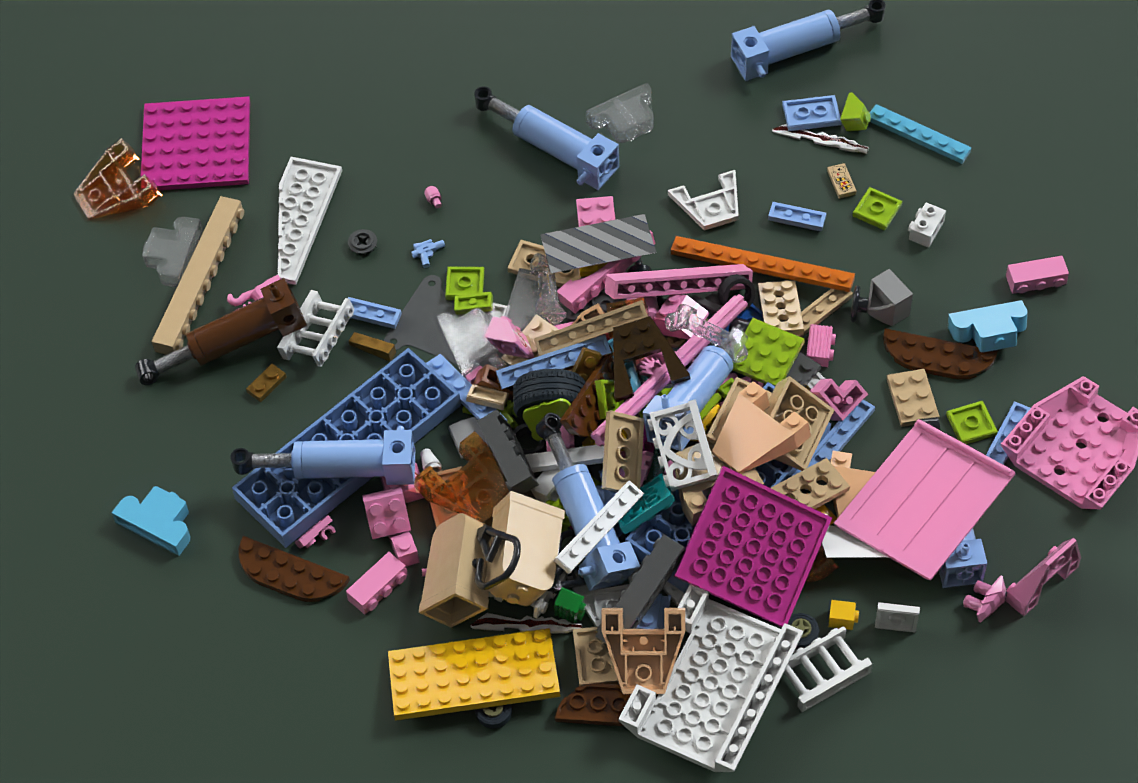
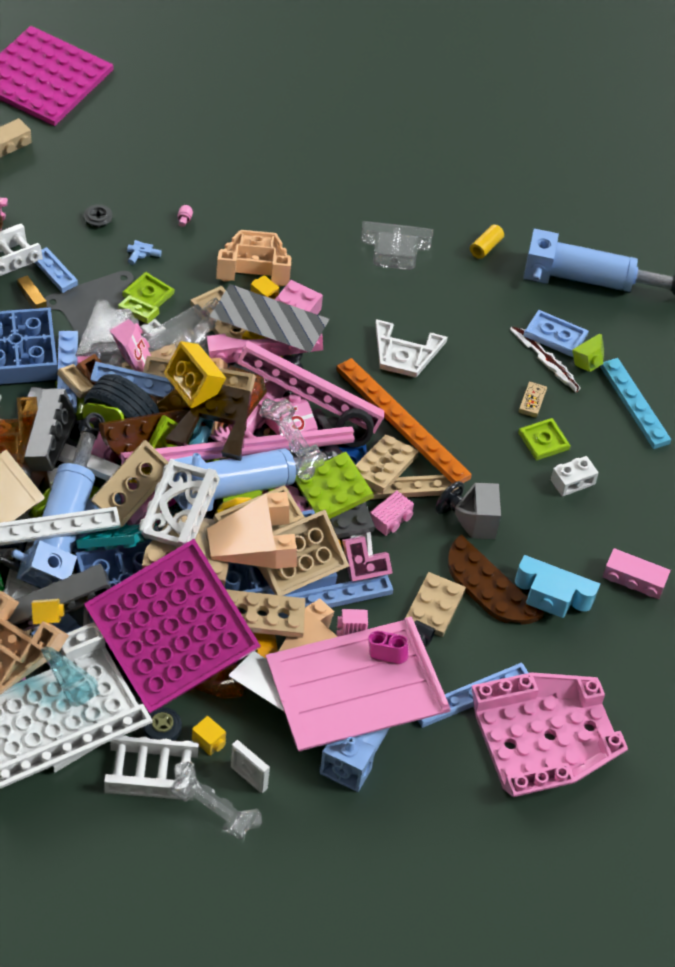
camera: 25 degrees right, 5 degrees down
(302, 206) = (80, 161): white wing -> none
(525, 192) = (254, 254): none -> light nougat wedge
(558, 220) = (265, 287): none -> yellow brick
(593, 158) = (334, 257): light blue piece -> none
(595, 330) = (194, 374): none -> yellow slope
(653, 600) = (47, 611): none -> yellow brick
(694, 66) = (487, 241): none -> yellow brick
(720, 641) = (73, 680): none -> clear light blue slope
(797, 216) = (467, 403): light blue plate -> none
(872, 665) = (236, 822): none -> clear plate
(875, 454) = (351, 621): none -> bright pink brick
(924, 456) = (388, 647): none -> dark pink beam
(972, 422) = (468, 657): lime tile -> none
(994, 597) = (351, 807): bright pink connector -> none
(1060, 560) = (409, 808): bright pink wedge -> none

